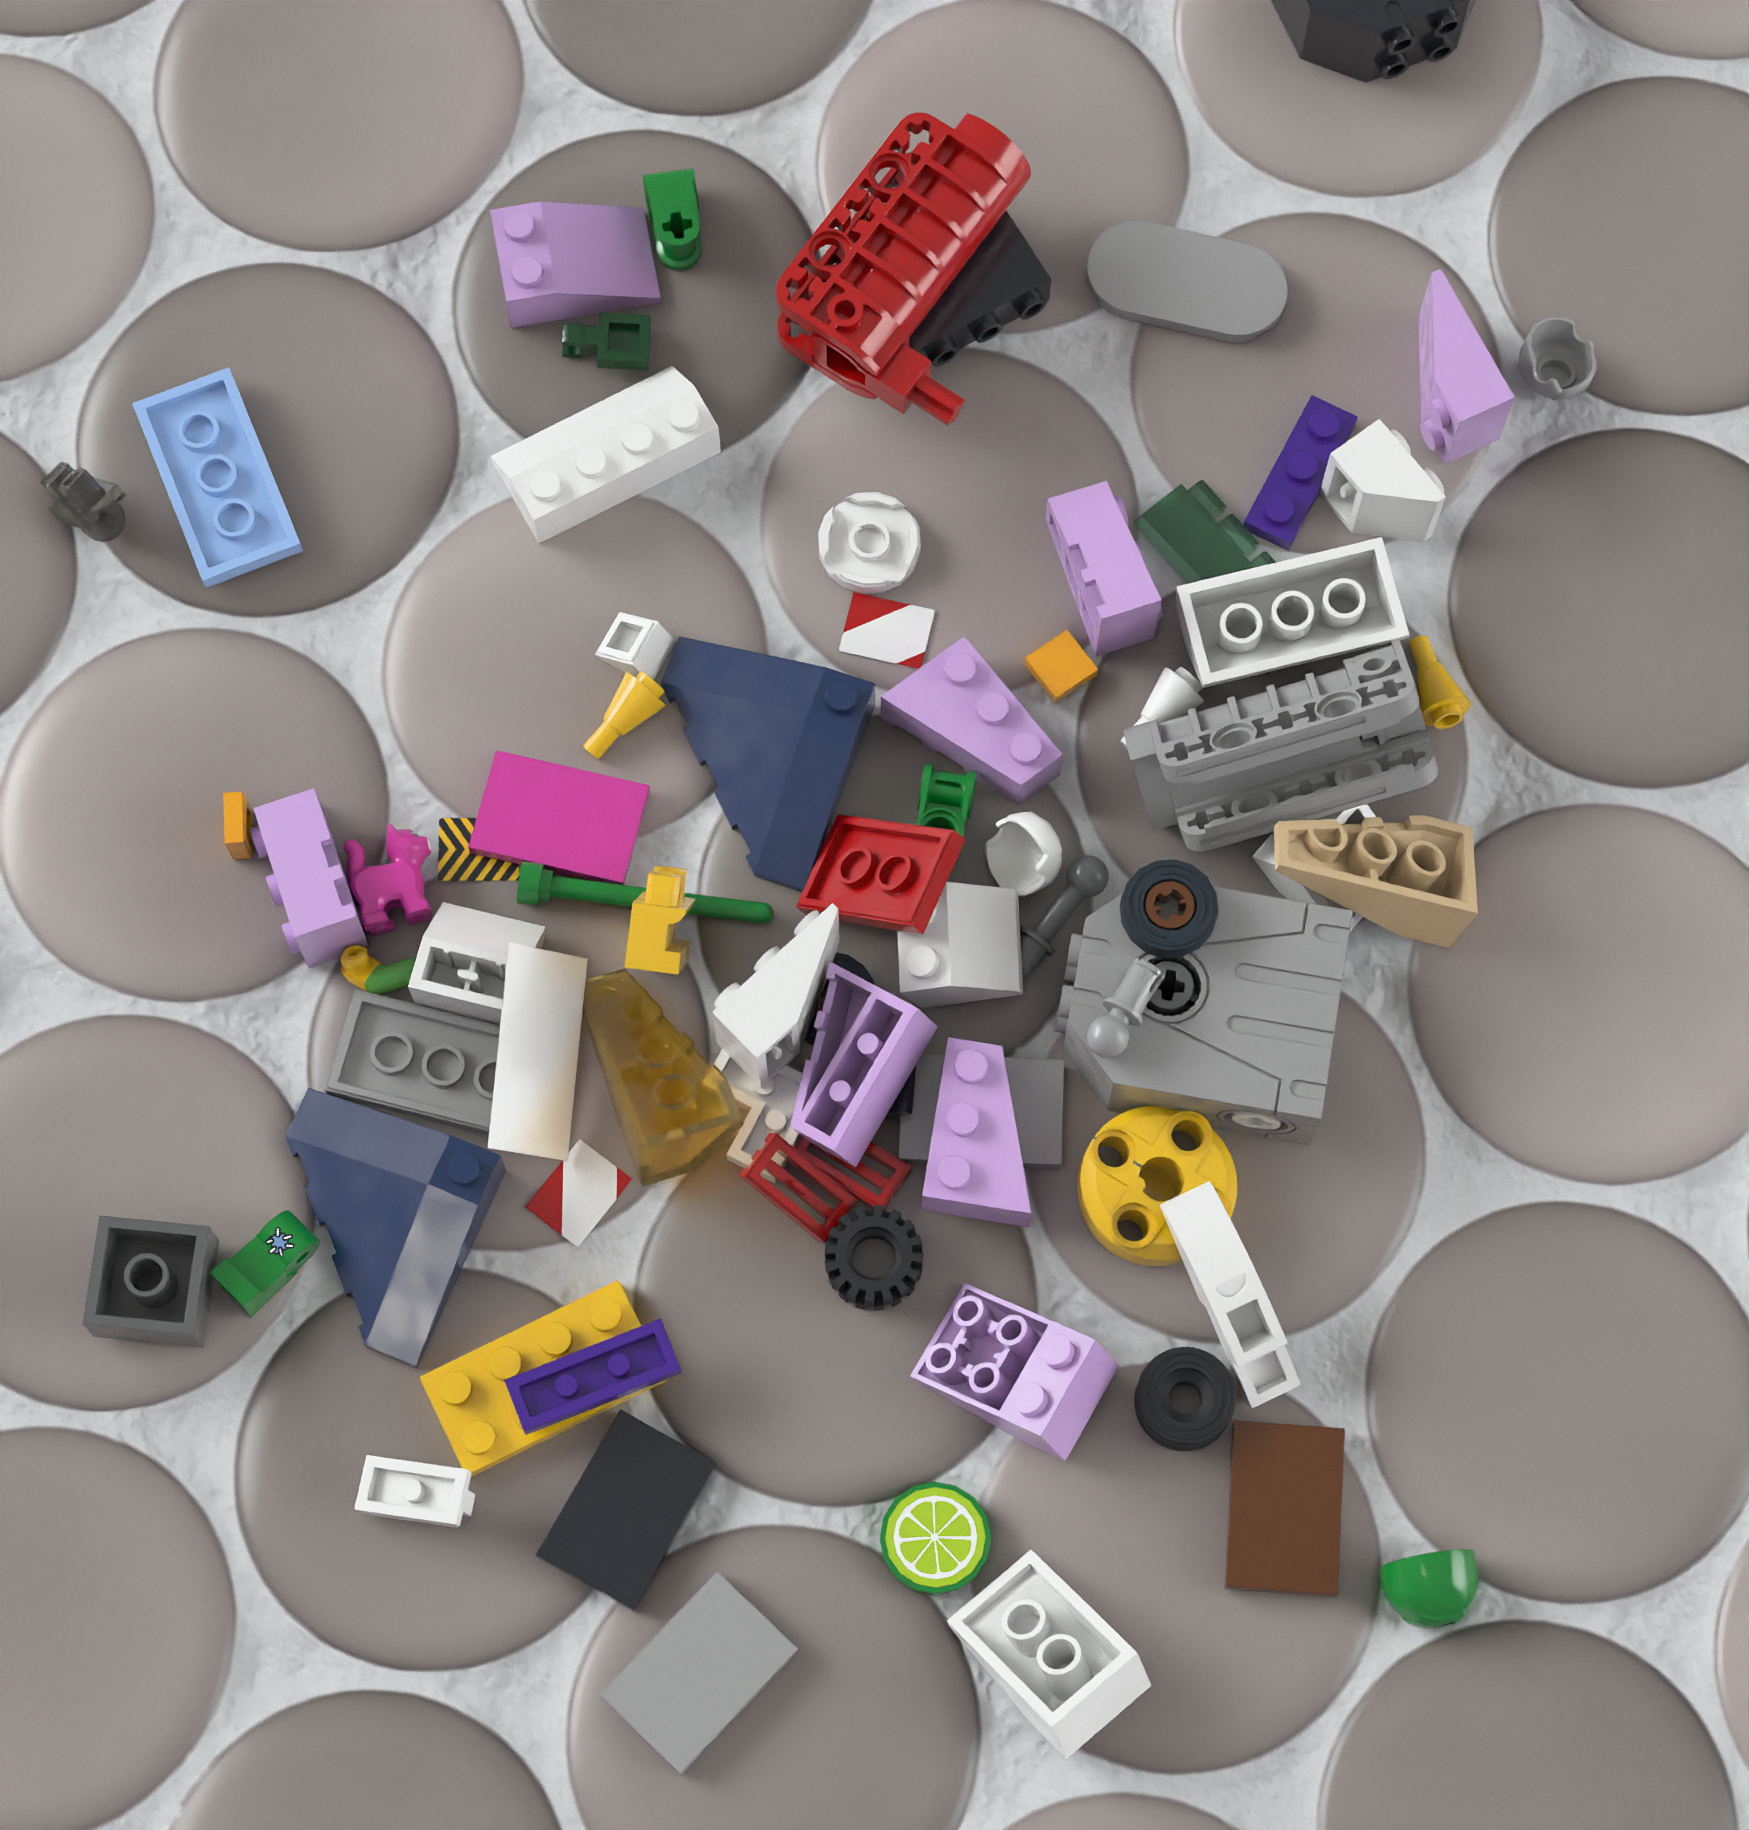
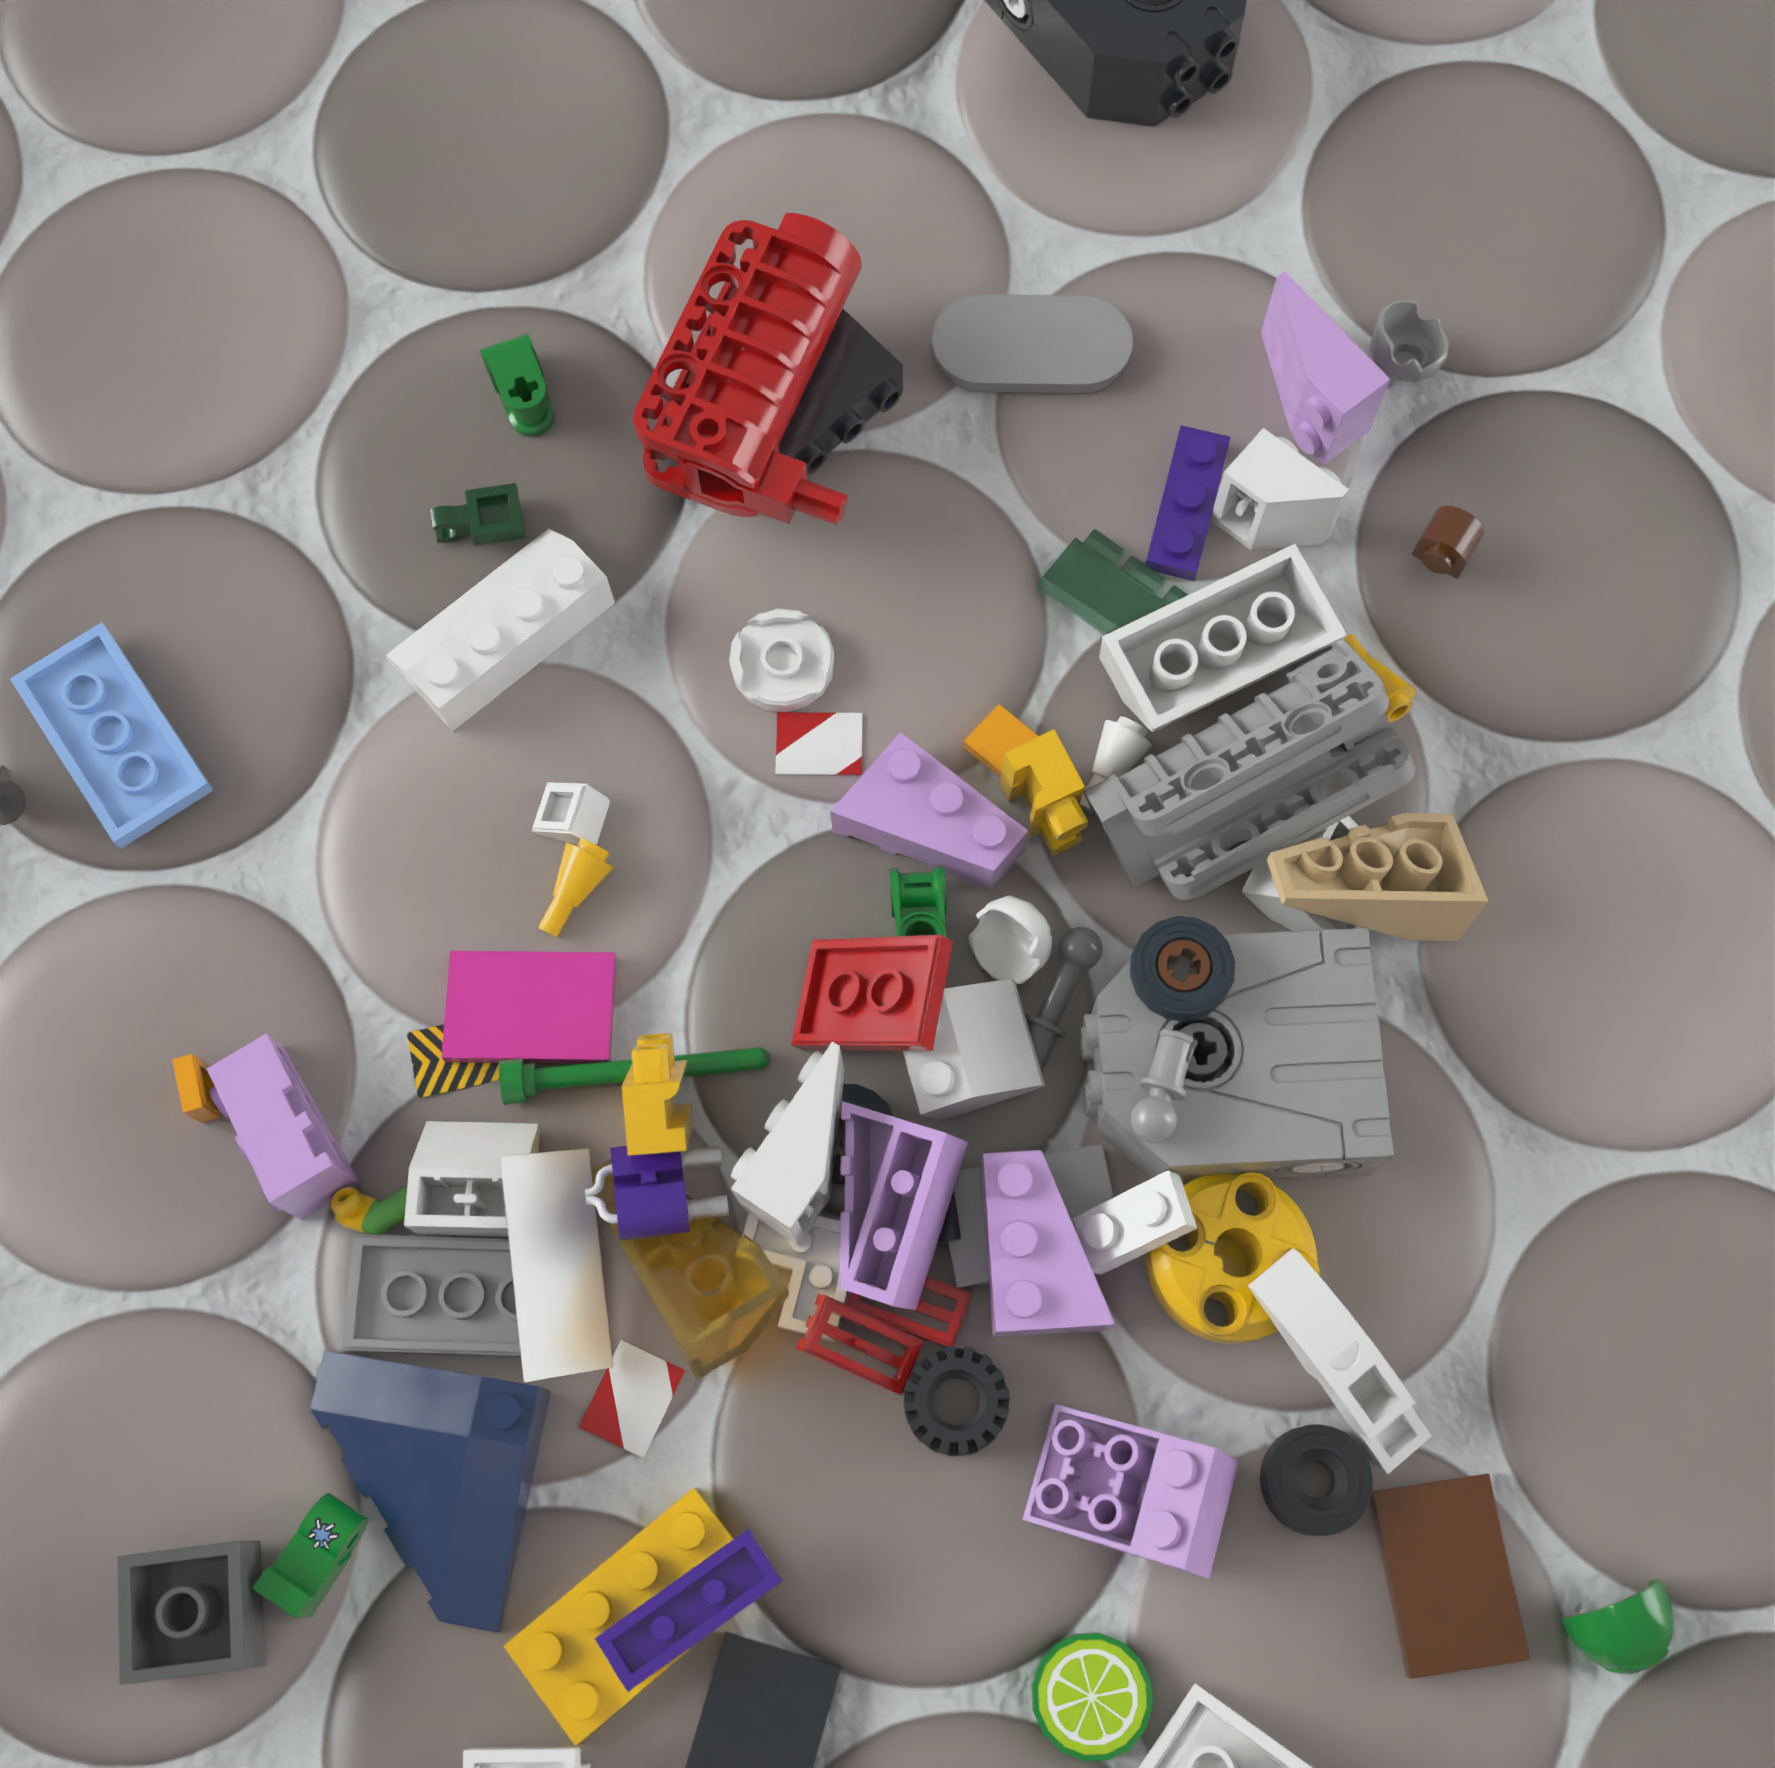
camera: 10 degrees left, 0 degrees up
(390, 885) = (369, 1116): dark pink animal -> none
(573, 260) = (426, 446): lavender slope -> none
(639, 1007) = (653, 1192): none -> dark purple piece
(776, 744) = (734, 884): dark blue slope -> none
(1072, 1131) = (1135, 1222): none -> white plate
(1092, 708) = (1050, 787): none -> yellow hips
(1104, 567) = (1022, 634): lavender wedge -> none
(1542, 566) = (1449, 541): none -> reddish brown plate

